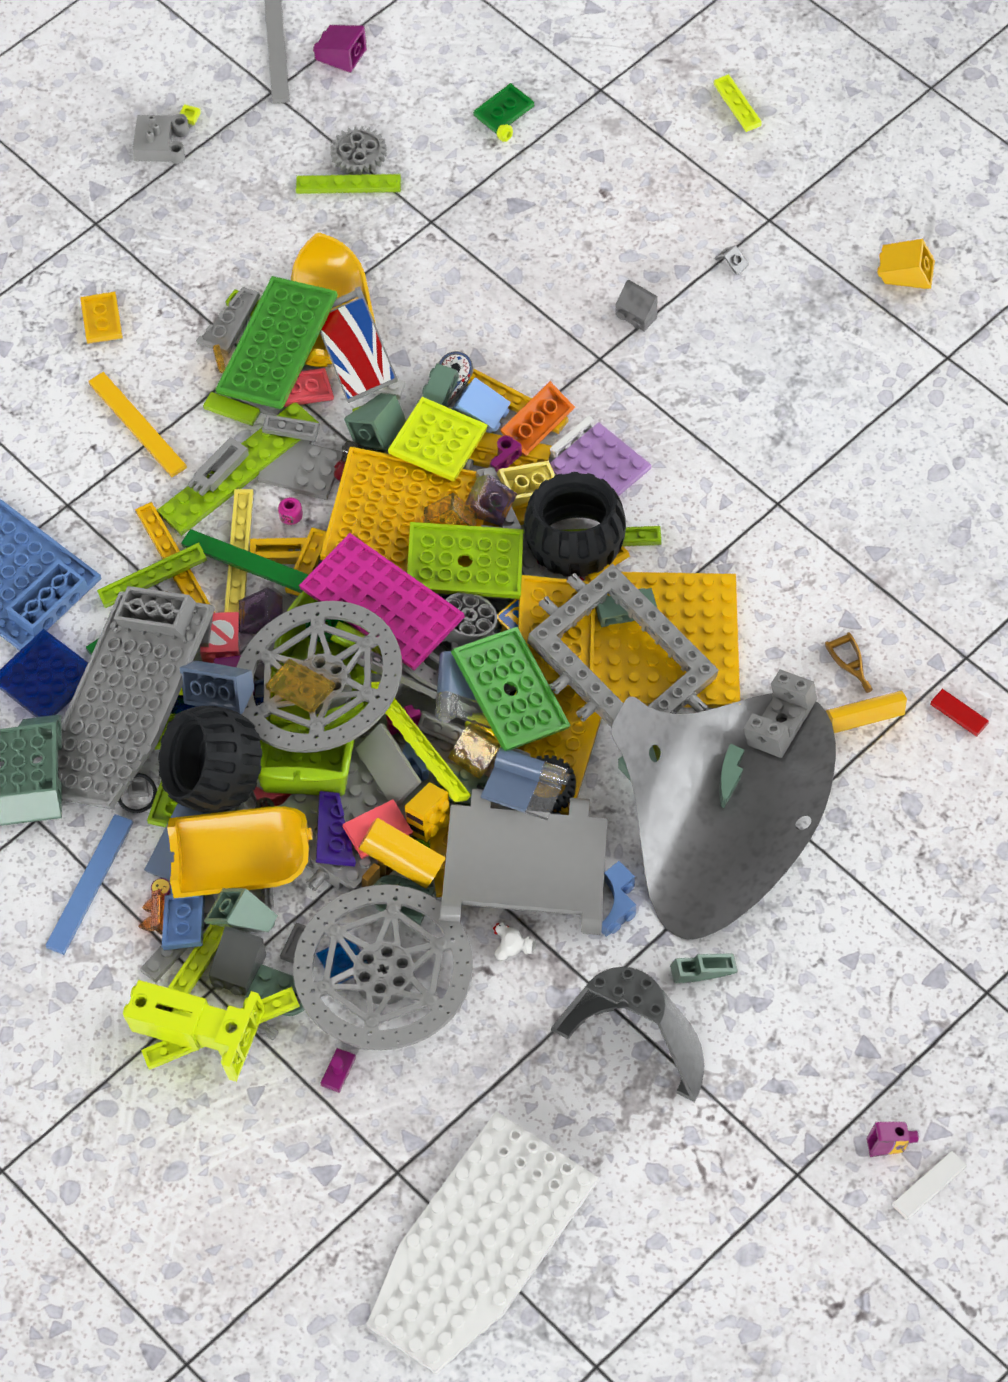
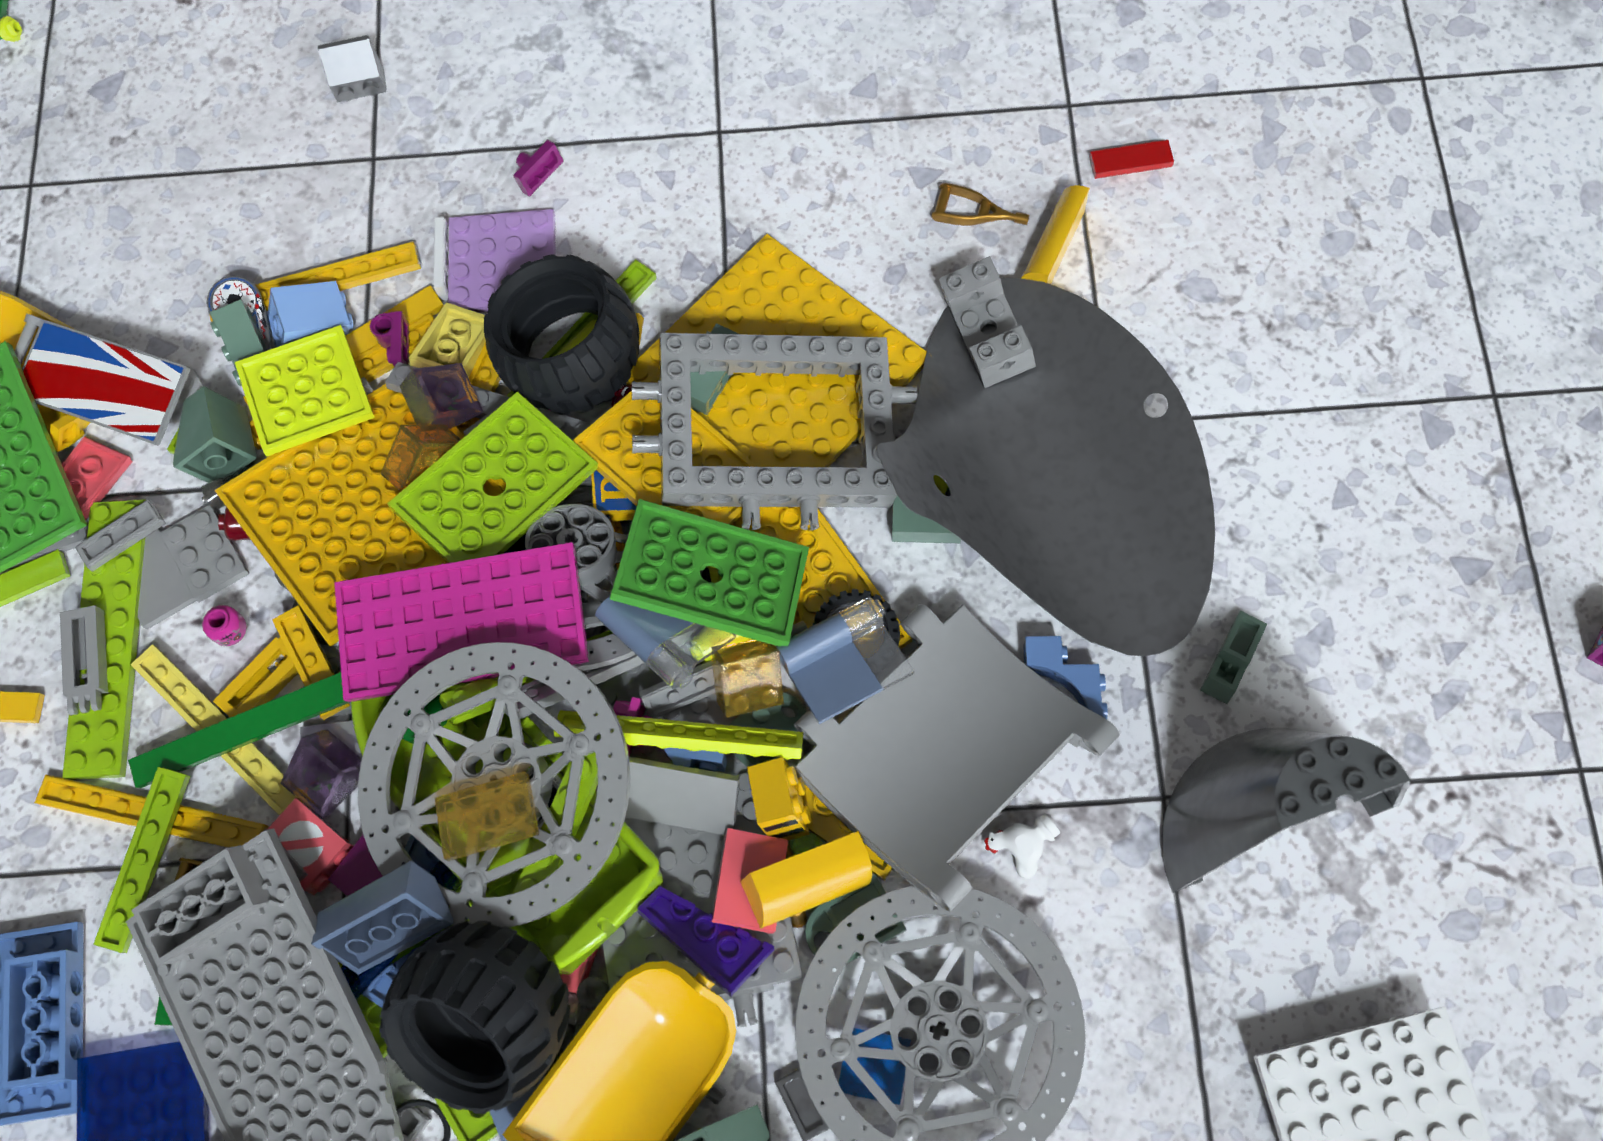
camera: 45 degrees left, 10 degrees up
(371, 875) = (803, 942): pearl gold tile -> none
(538, 417) = (385, 268): orange slope -> none
(667, 437) = (537, 168): none -> magenta tile
(730, 773) = (1012, 433): sand green slope -> none

